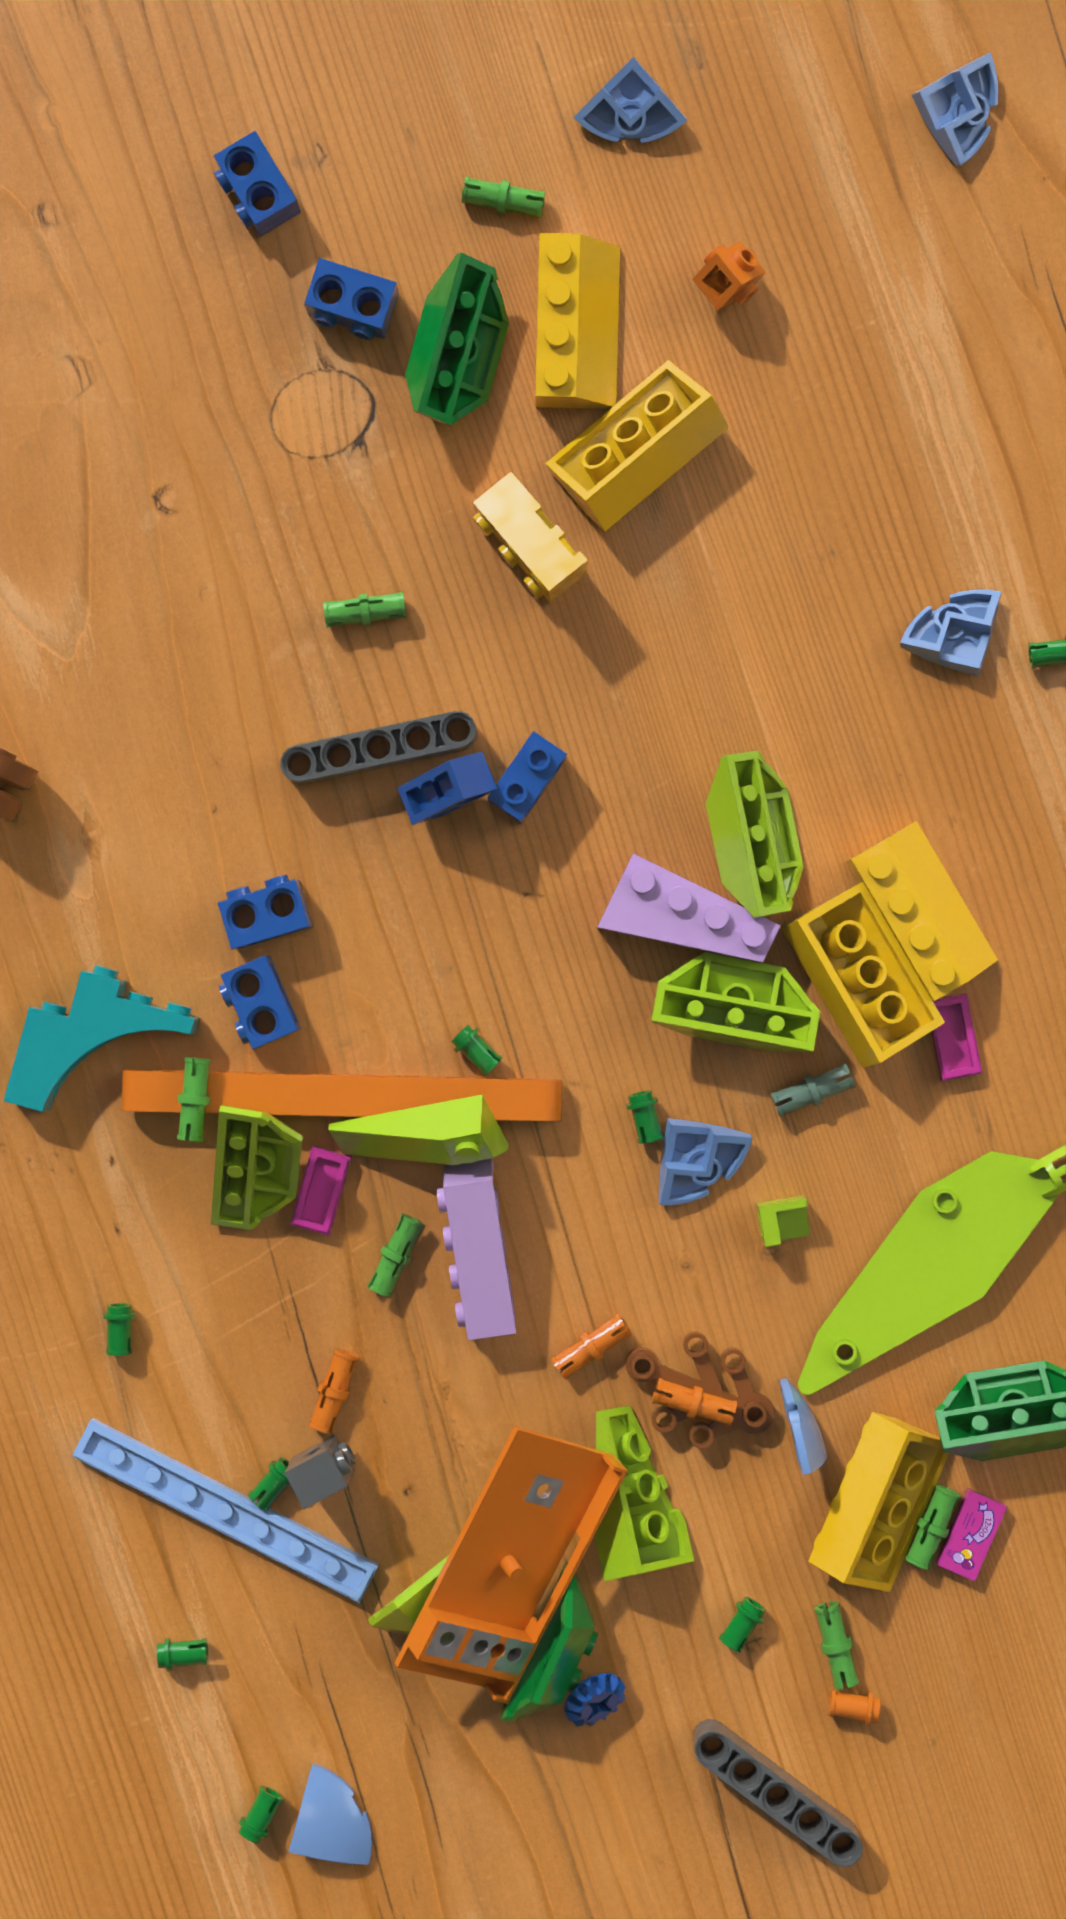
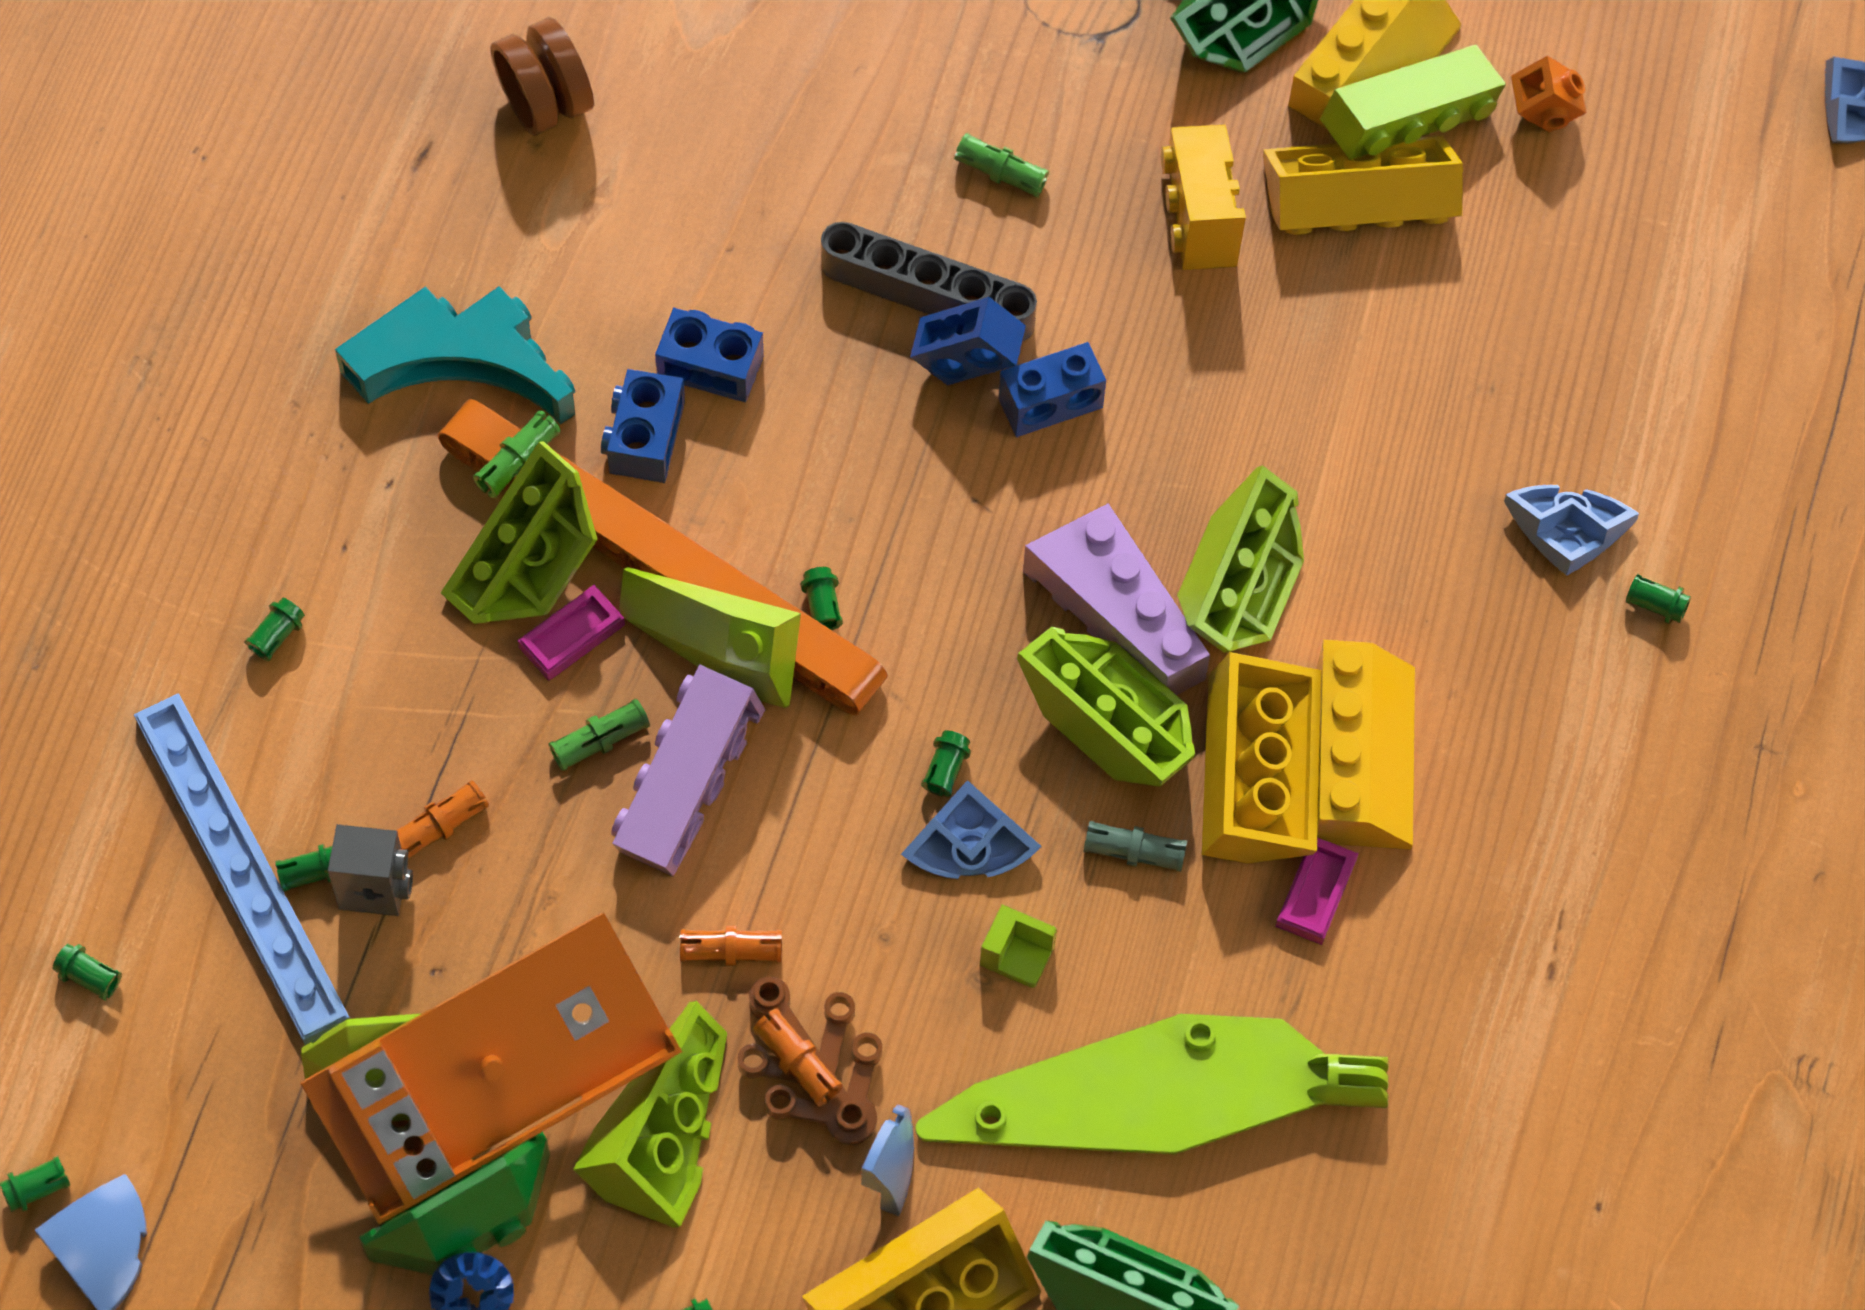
camera: 30 degrees right, 25 degrees down
(636, 355) = (1412, 102): none -> brick

